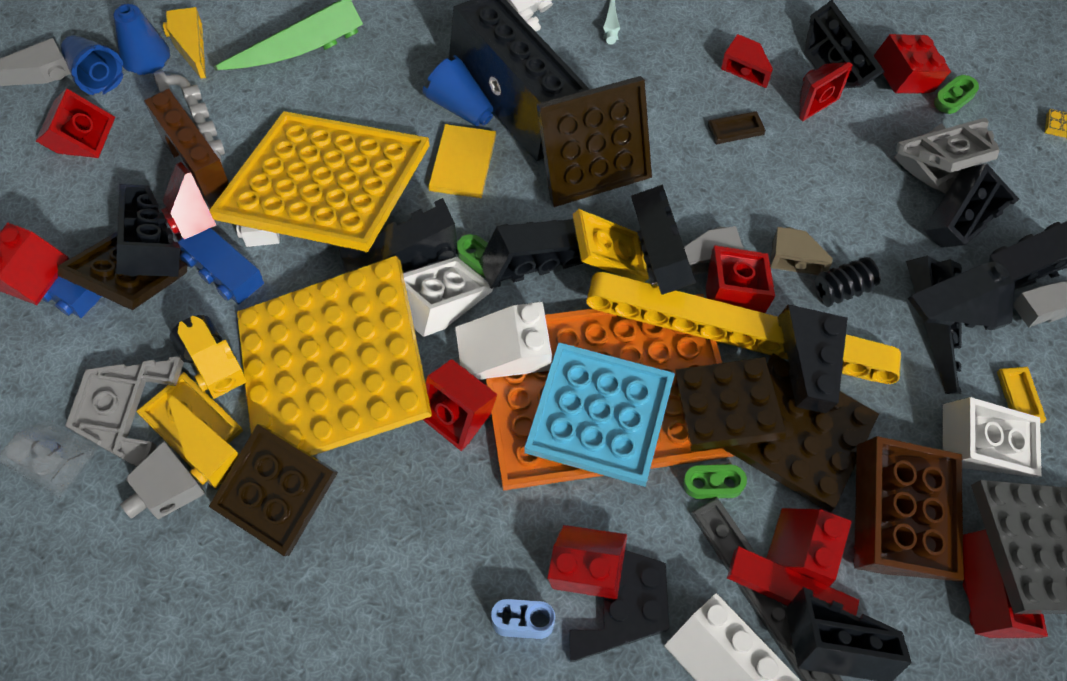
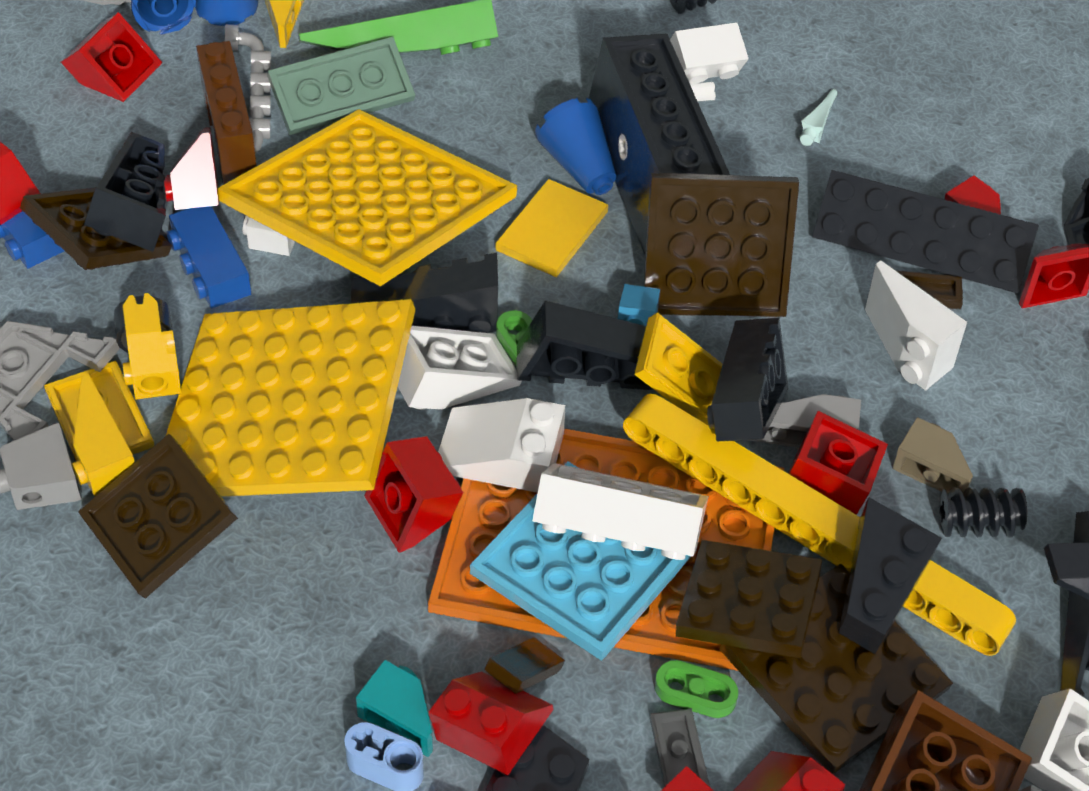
camera: 20 degrees right, 10 degrees down
(262, 96) = (339, 83): none -> sand green plate
(516, 574) = (397, 703): none -> teal slope
(553, 204) = (638, 304): none -> dark azure brick
(592, 510) = (524, 665): none -> dark brown tile
(617, 369) = (620, 510): none -> white slope
(722, 85) = (925, 231): none -> black plate
(744, 159) = (914, 327): none -> white slope

